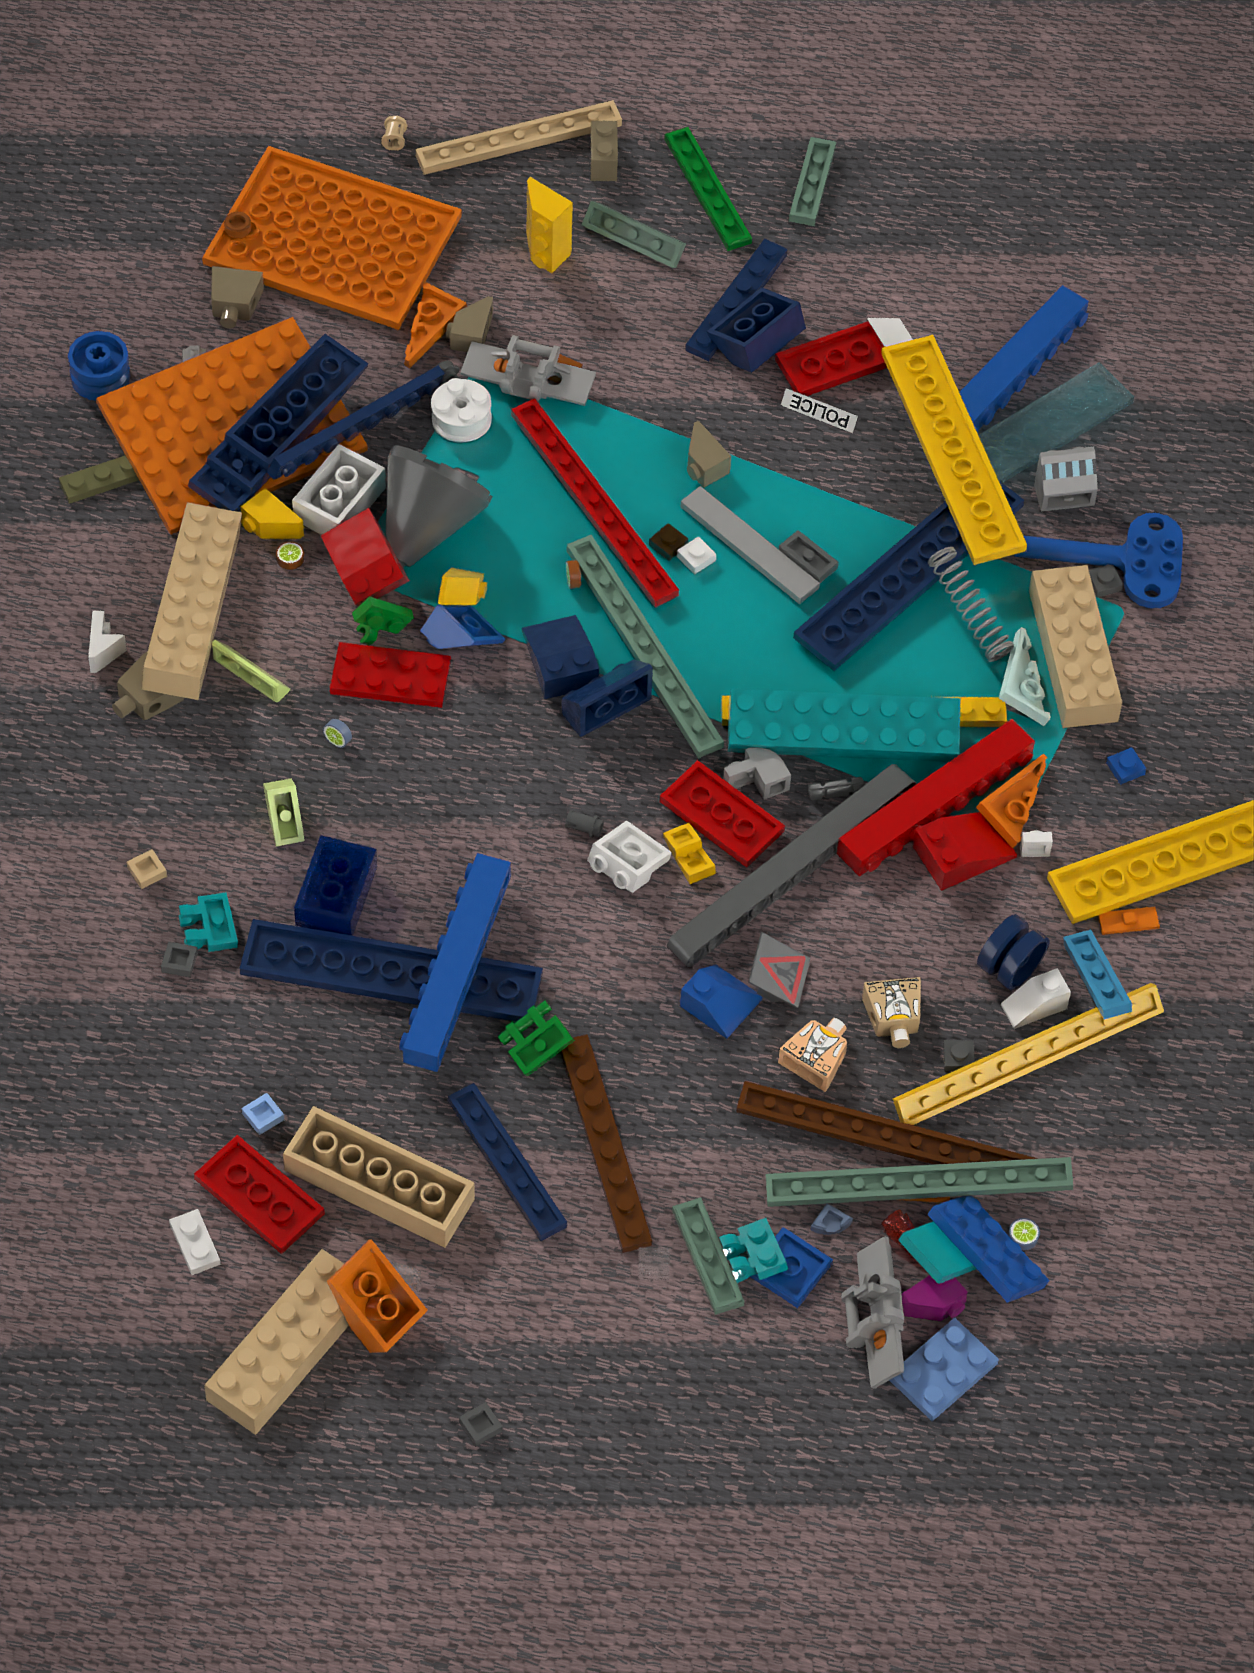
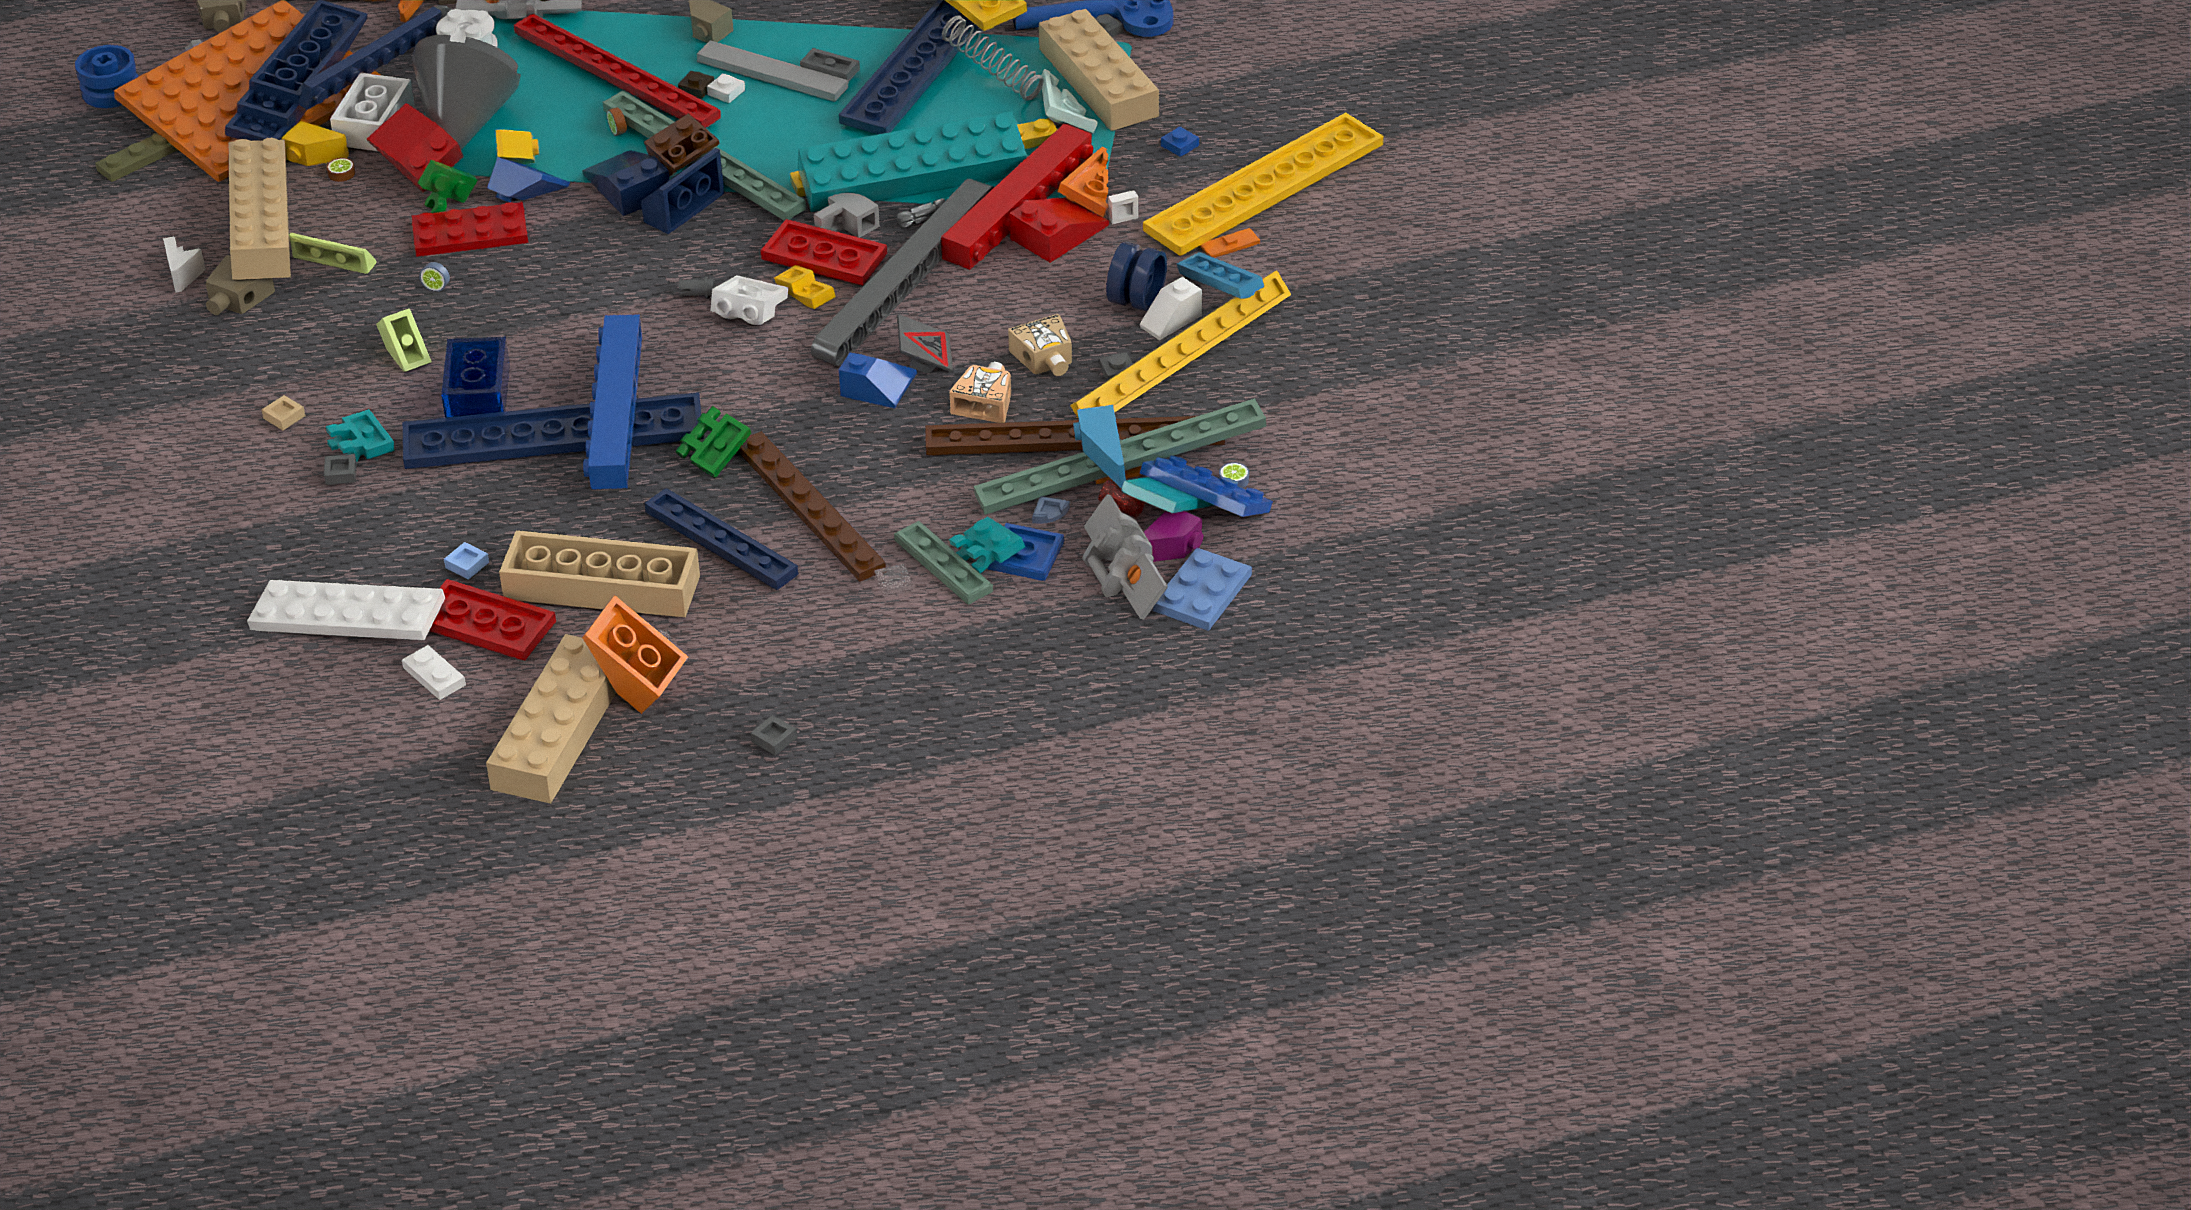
camera: 15 degrees left, 15 degrees down
(135, 1143) = (346, 609): none -> white plate
(620, 641) = (681, 143): none -> reddish brown slope
(902, 1162) = (1101, 440): none -> dark azure slope

